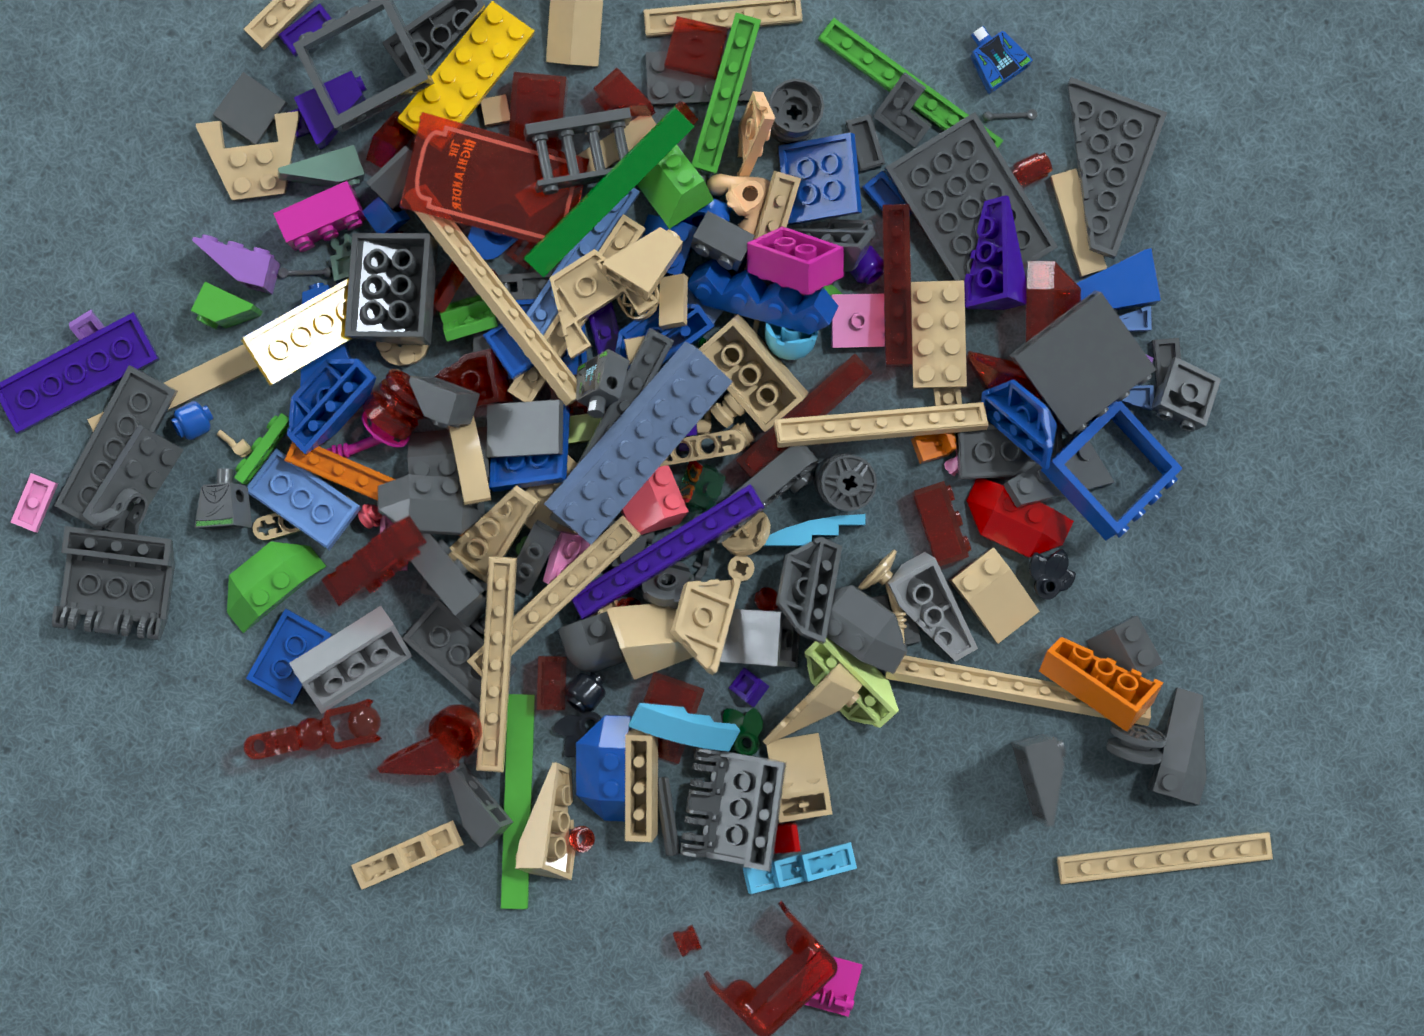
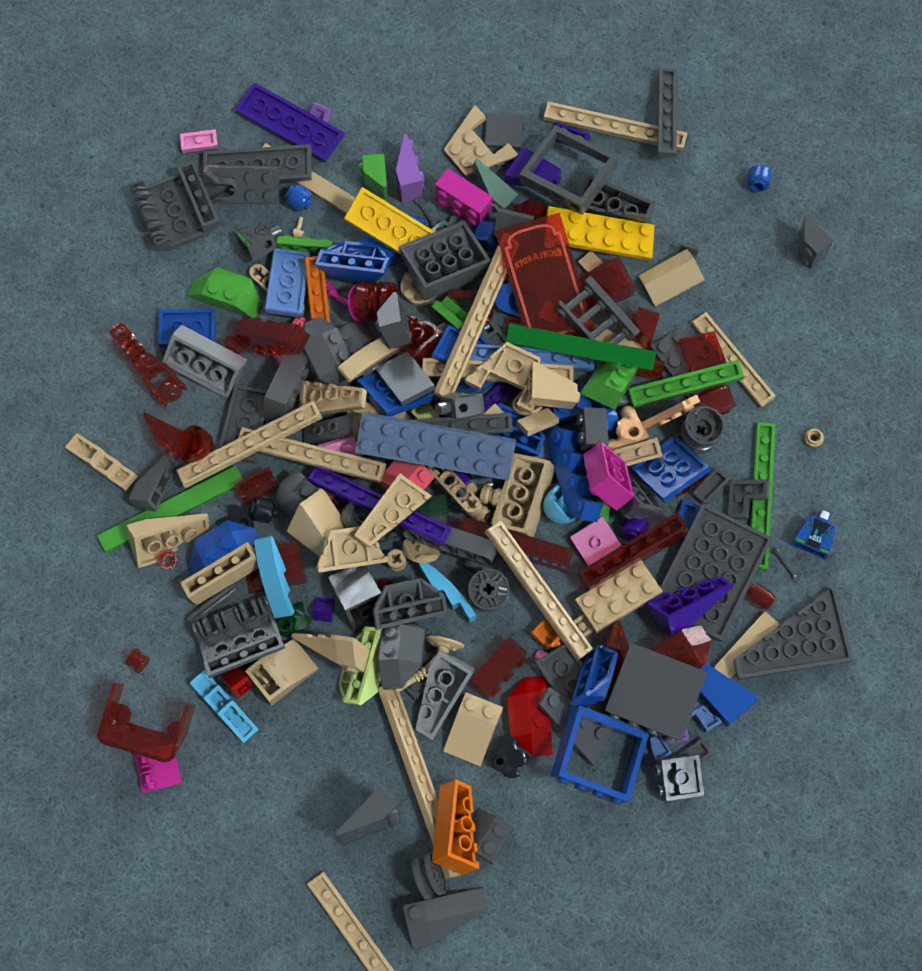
camera: 60 degrees right, 15 degrees down
(349, 610) = (235, 344): none -> clear red tile
(686, 537) = (396, 504): none -> tan wing
(765, 70) = (718, 398): none -> clear red slope

